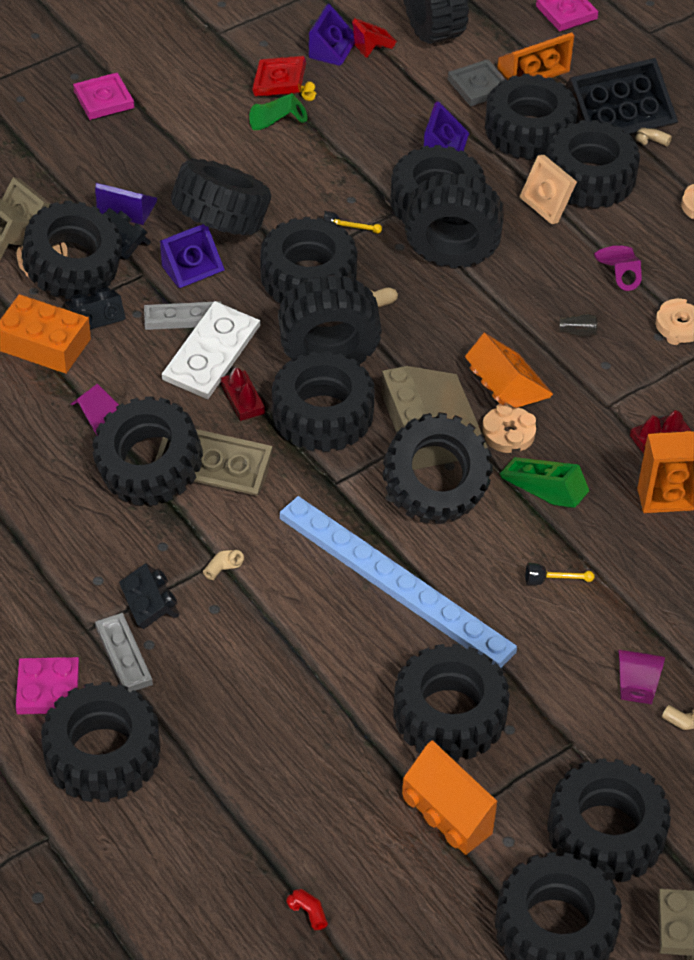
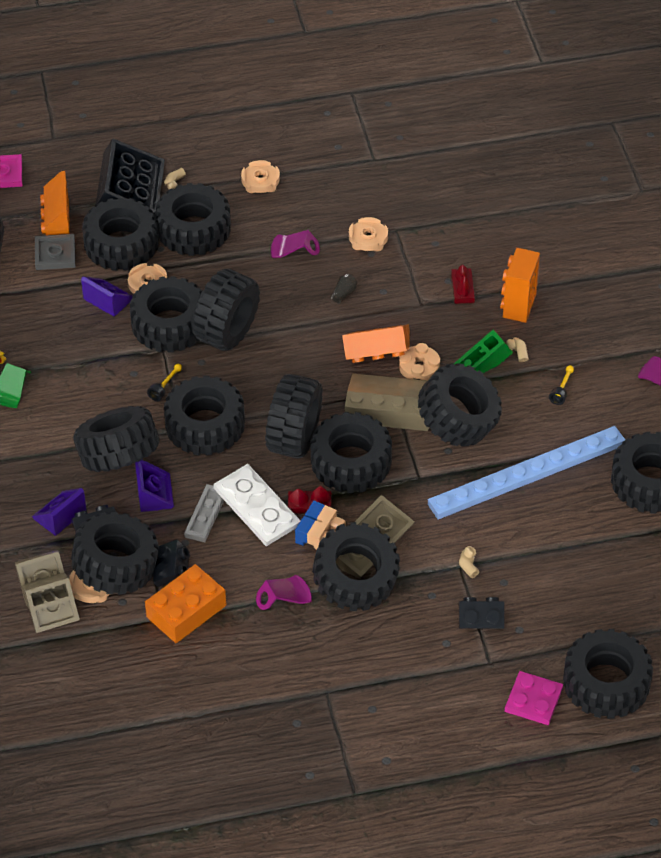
camera: 65 degrees left, 0 degrees up
(123, 652) = (523, 645): light grey tile -> none
(210, 414) = (316, 523): none -> hips
(385, 296) = (254, 390): tan arm -> none
(498, 161) = (141, 272): none -> light nougat plate
(548, 189) = (207, 252): light nougat plate -> none
(593, 511) = (519, 346): none -> tan arm

